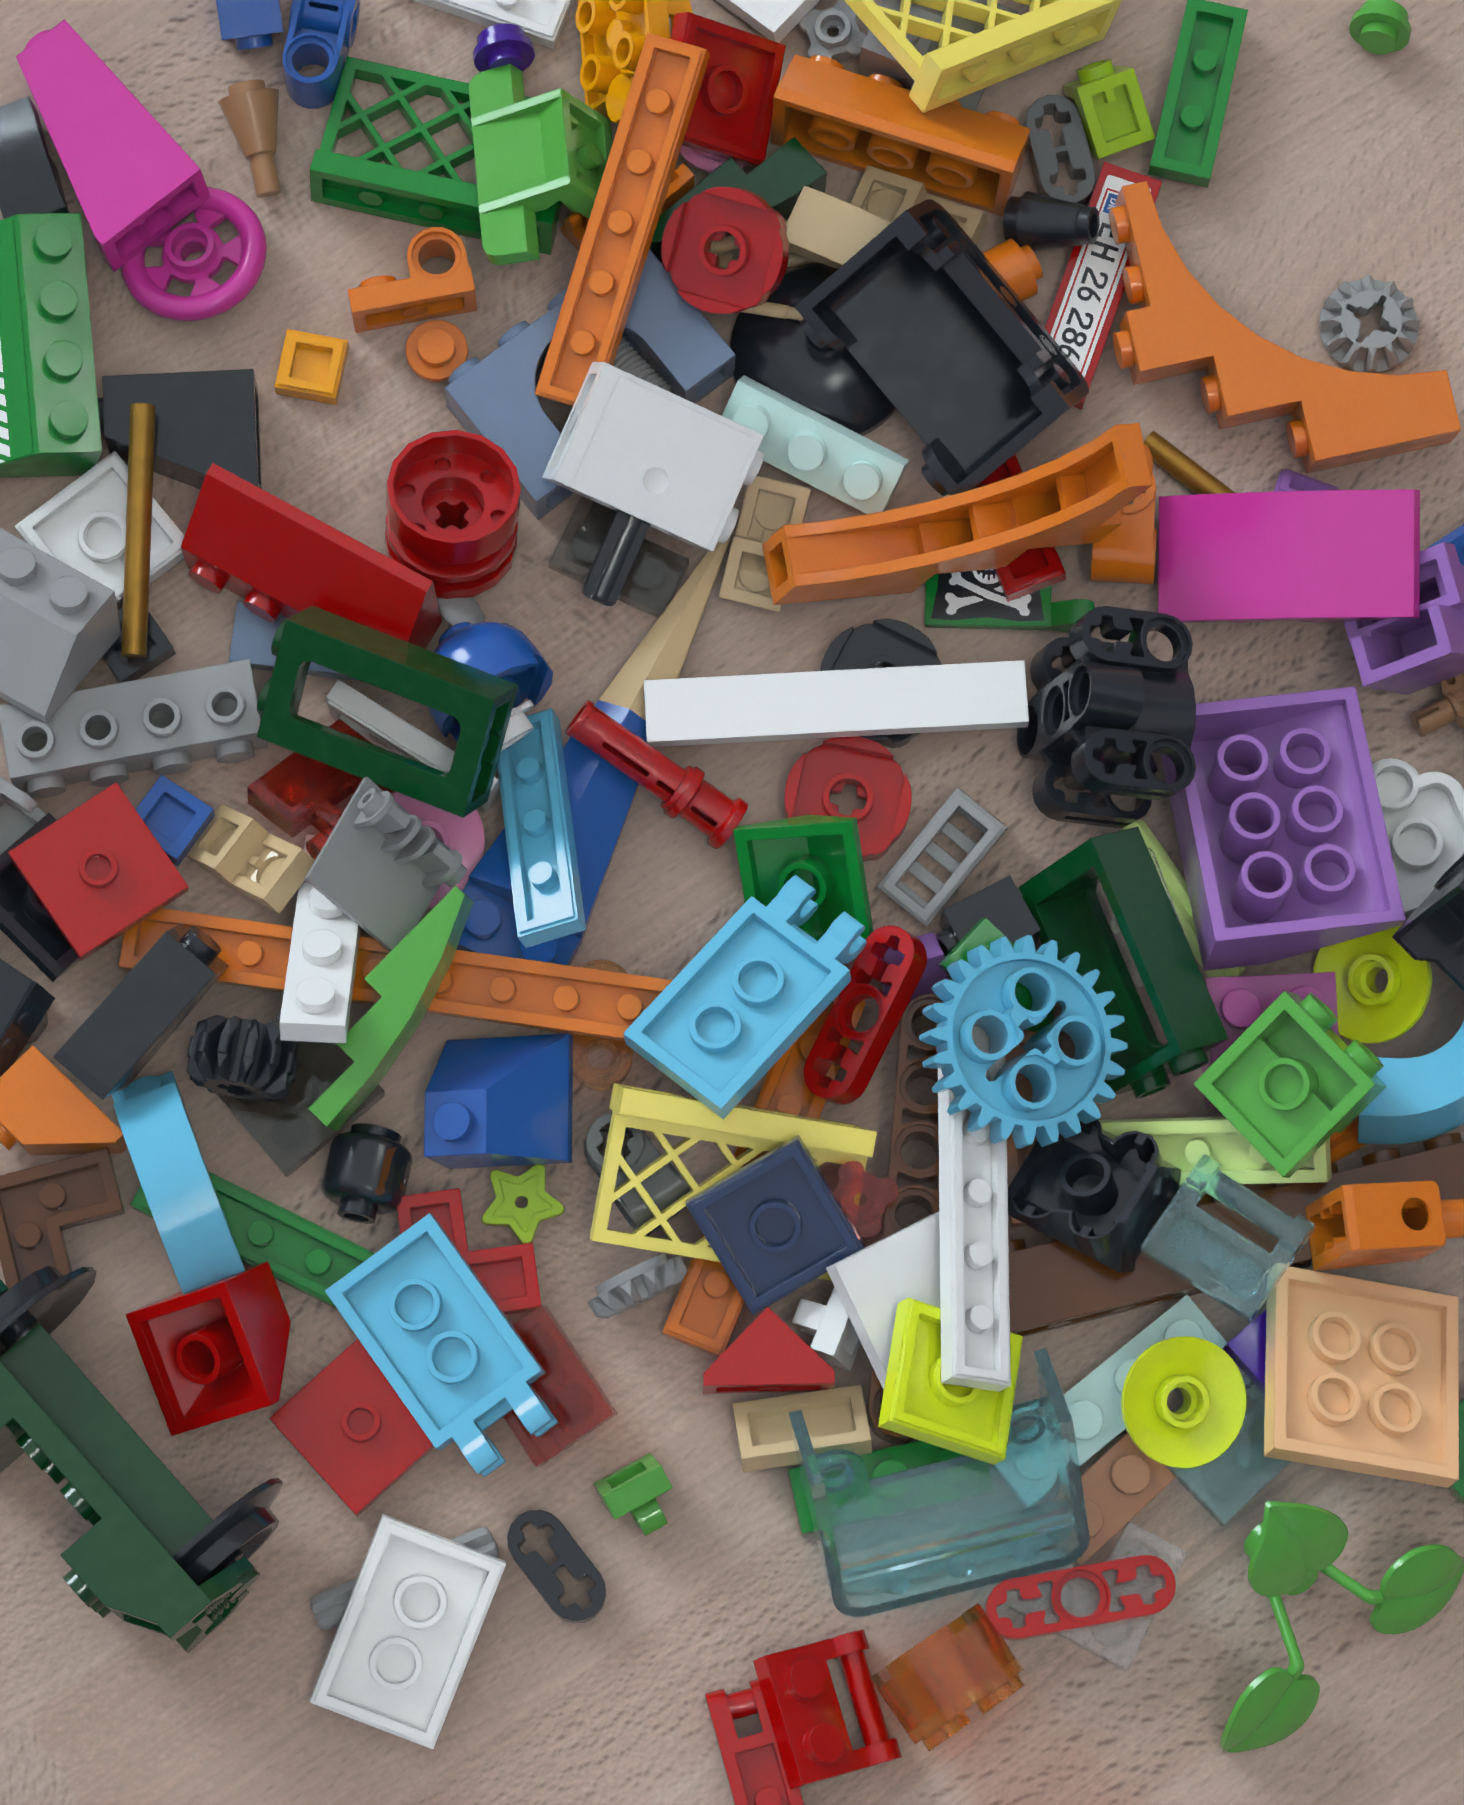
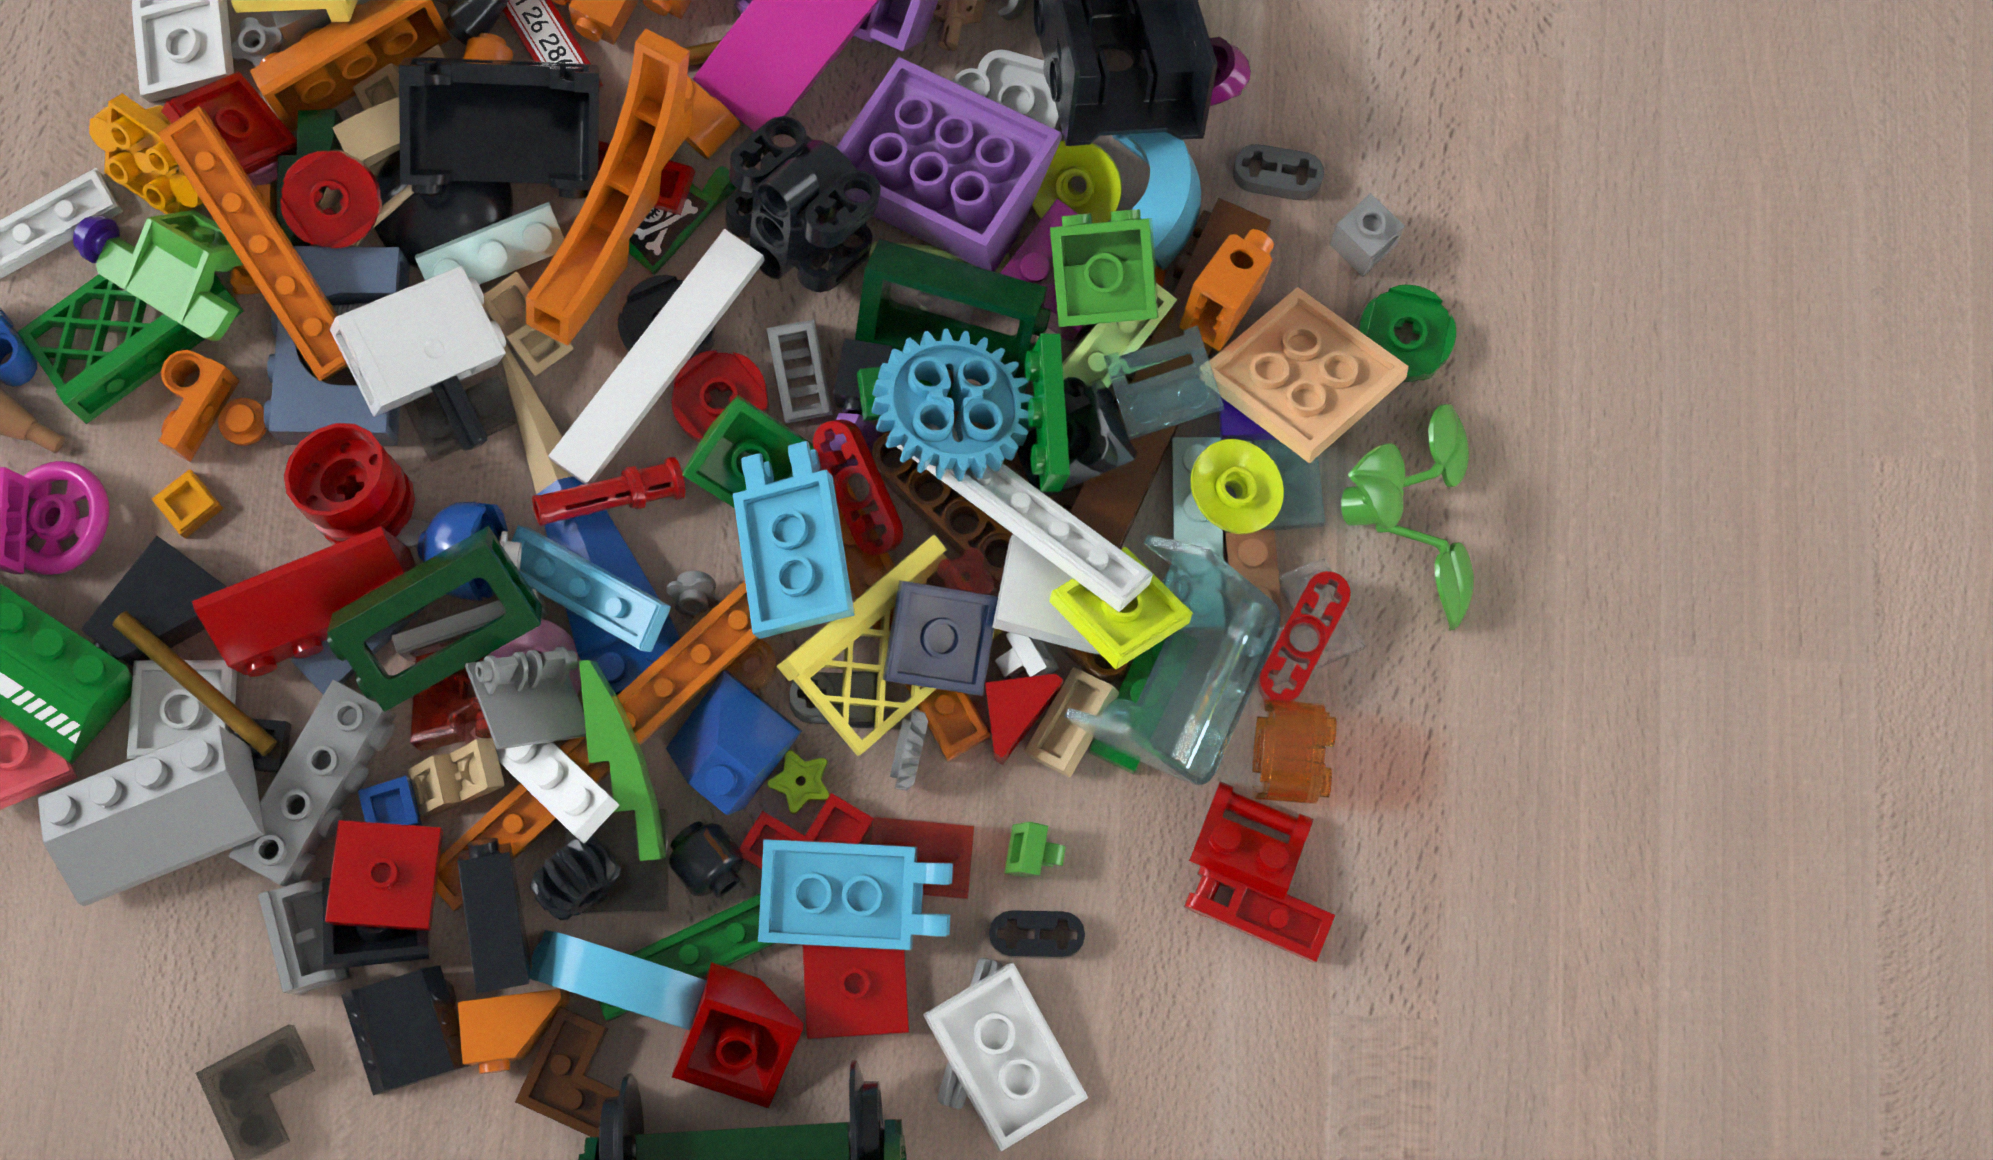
camera: 45 degrees left, 0 degrees up
(625, 939) = (693, 592): none -> light grey plate
(1092, 1144) = (1048, 413): none -> green plate

